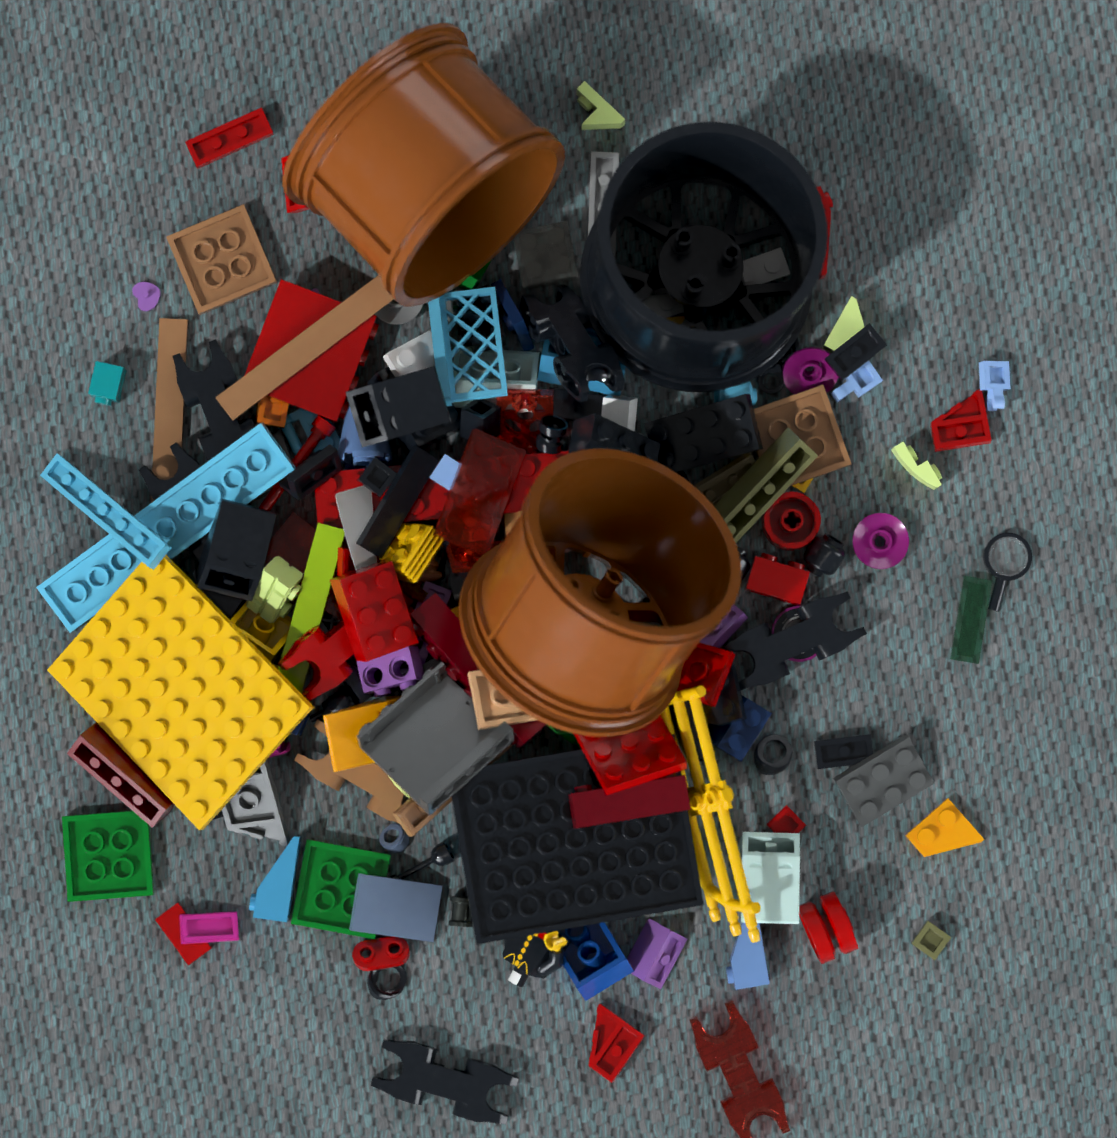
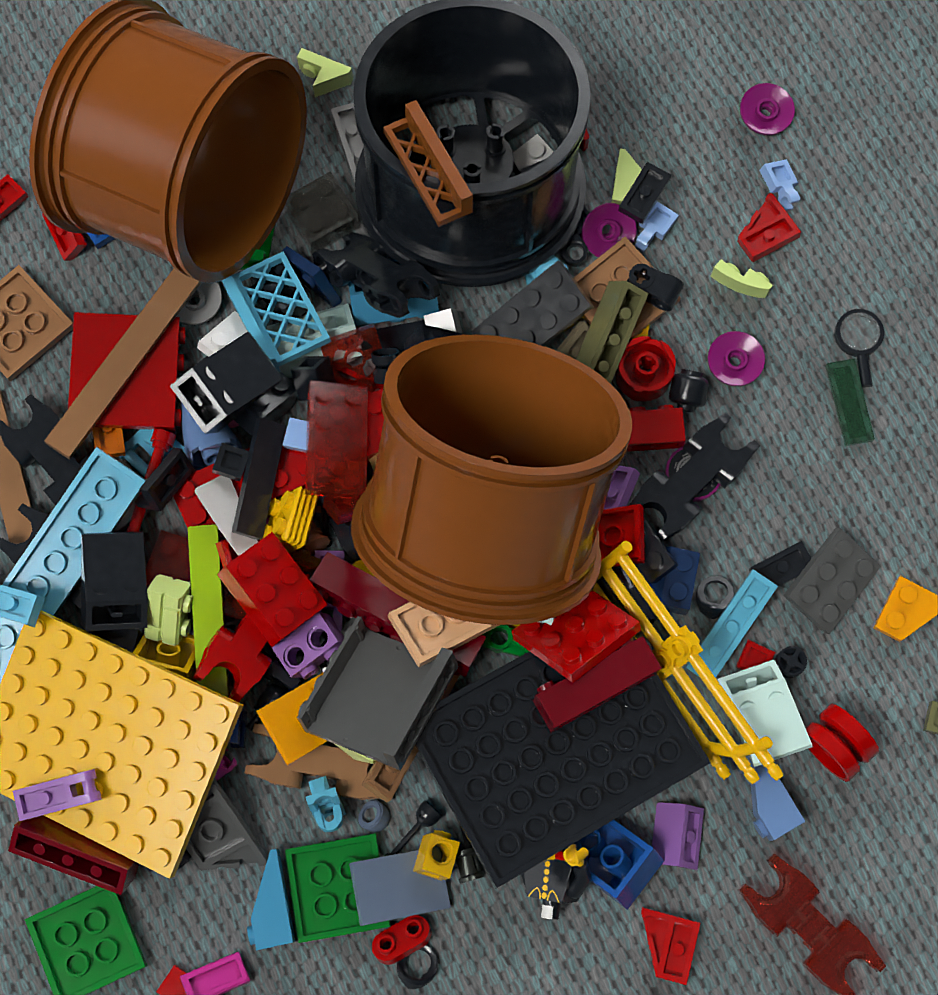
camera: 20 degrees left, 10 degrees down
(124, 722) = (55, 795): none -> medium lavender plate
(355, 812) = (325, 802): none -> medium azure hips
(424, 895) = (427, 865): none -> yellow brick
(655, 291) = (437, 157): none -> dark orange fence
(777, 788) = (735, 621): none -> medium azure plate
(818, 843) = (794, 657): none -> black wheel
(833, 452) = (662, 287): none -> black piece
(1024, 299) = (770, 98): none -> magenta dish

